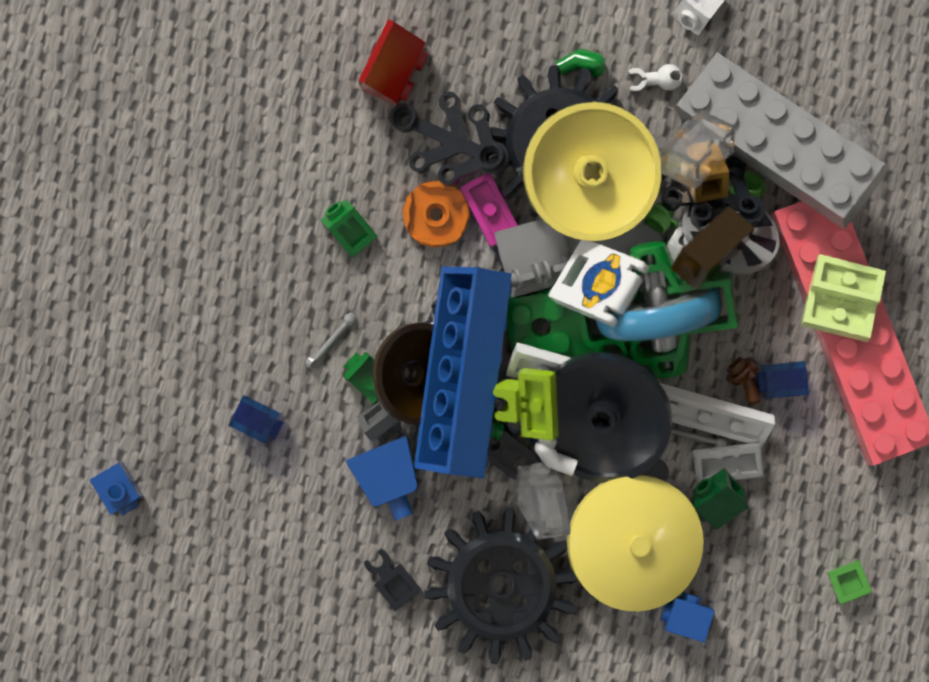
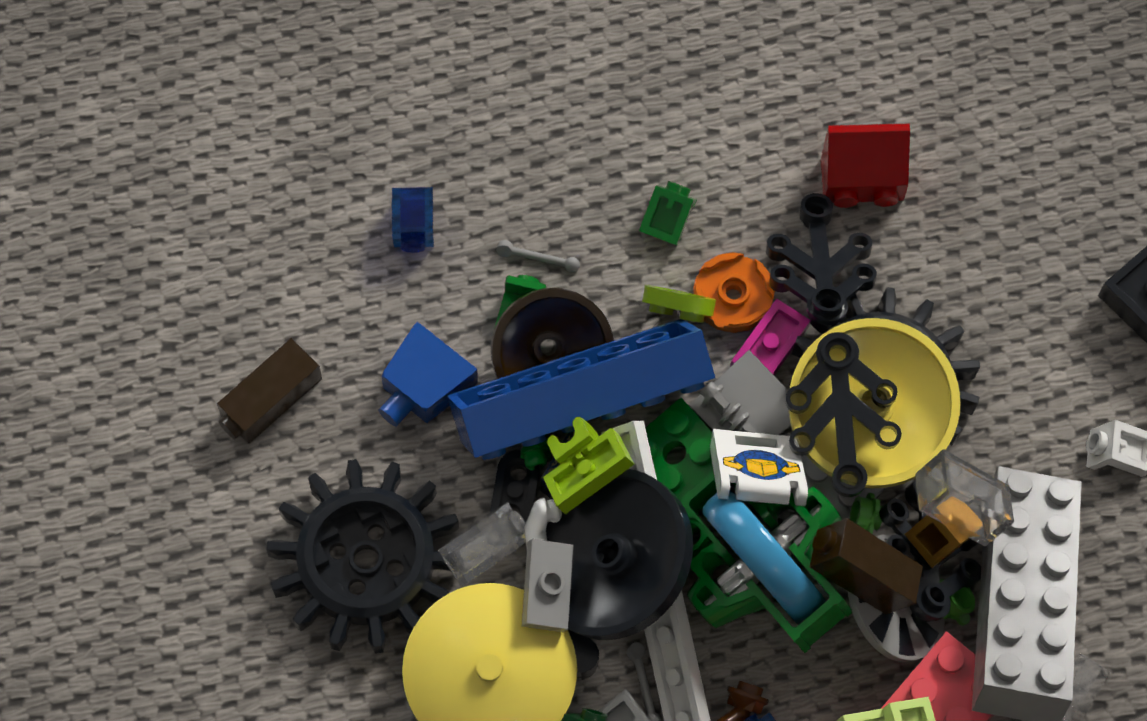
camera: 60 degrees right, 20 degrees down
(117, 489) = (265, 120): blue brick -> none
(340, 593) = (268, 392): none -> dark brown brick
(377, 421) = (475, 338): dark grey tile -> none
(395, 583) = (309, 445): black plate -> none
(427, 260) = (666, 300): none -> lime plate
(582, 59) = (990, 362): green arm -> none
(587, 199) = (842, 405): none -> black plant
(603, 475) = (547, 585): none -> light grey plate
(662, 78) = (1019, 450): white arm -> none

